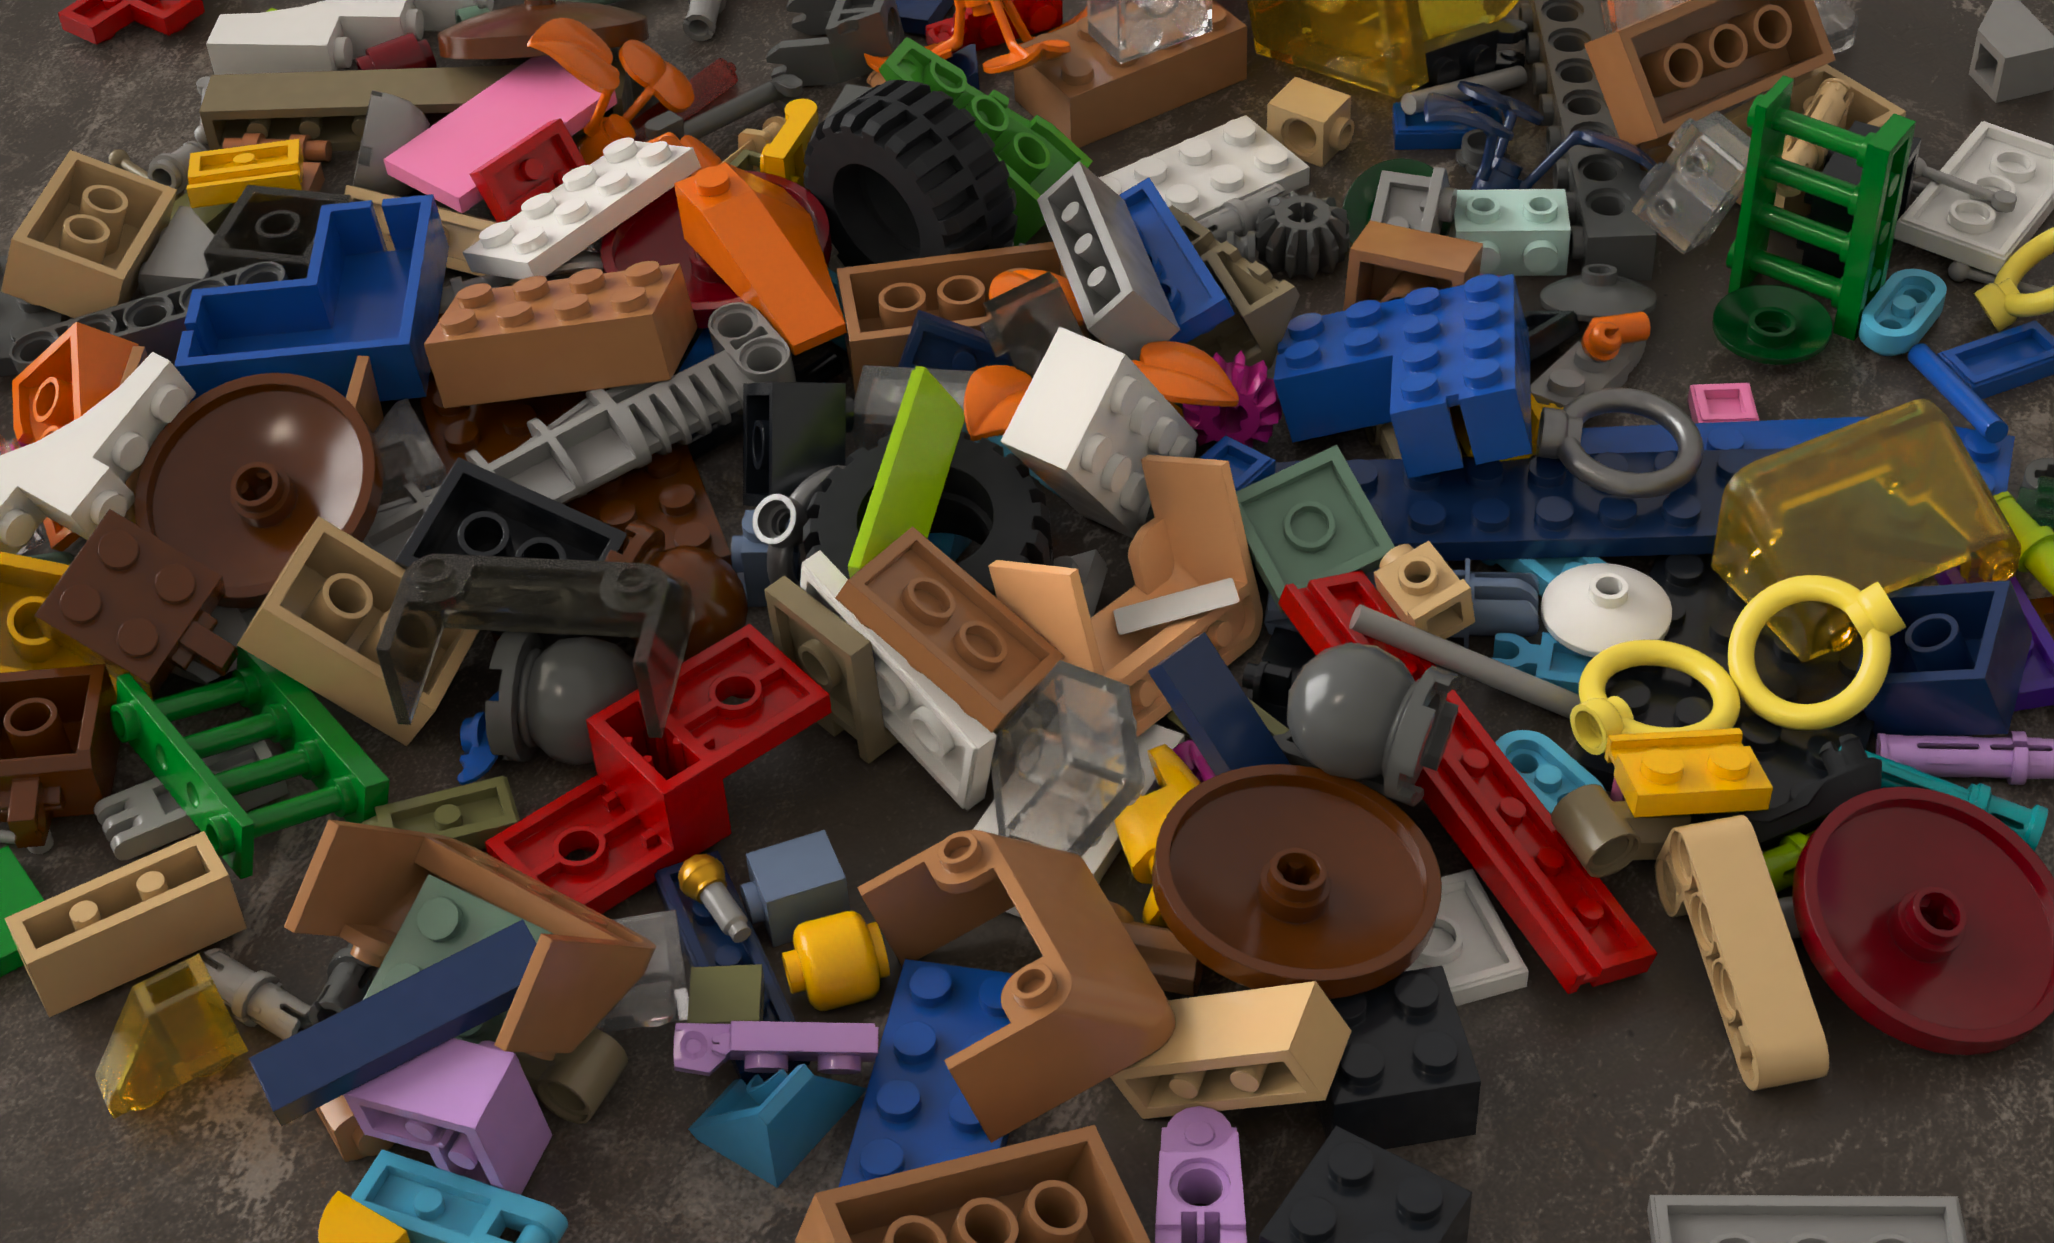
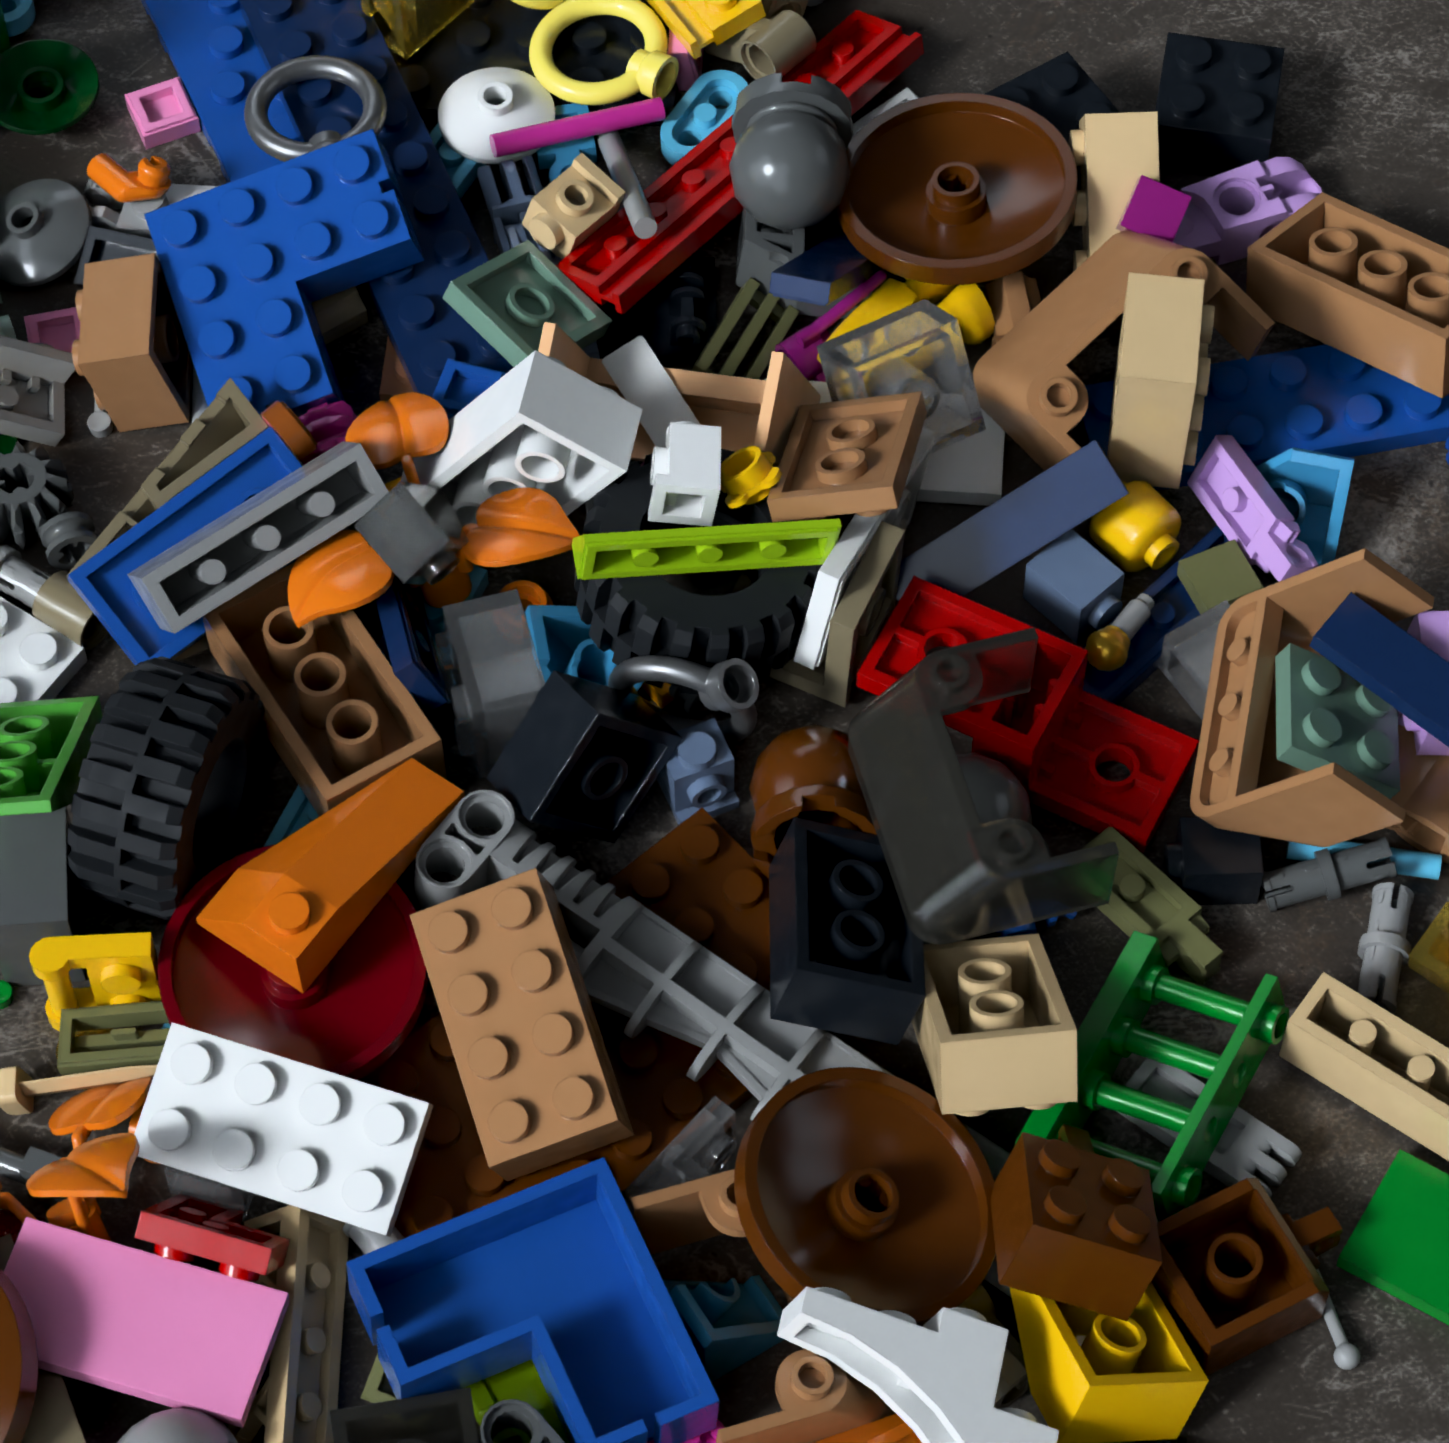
camera: 115 degrees left, 15 degrees up
(863, 821) = (1017, 524): none -> dark blue tile
(929, 931) = (1160, 379): none -> tan brick
(961, 538) = (748, 476): none -> yellow plate
(983, 494) = (686, 475): none -> white brick
(1175, 1038) = (1154, 209): none -> magenta piece
(1228, 323) = (290, 429): none -> dark orange tile
(1553, 653) = (577, 127): none -> dark pink bar

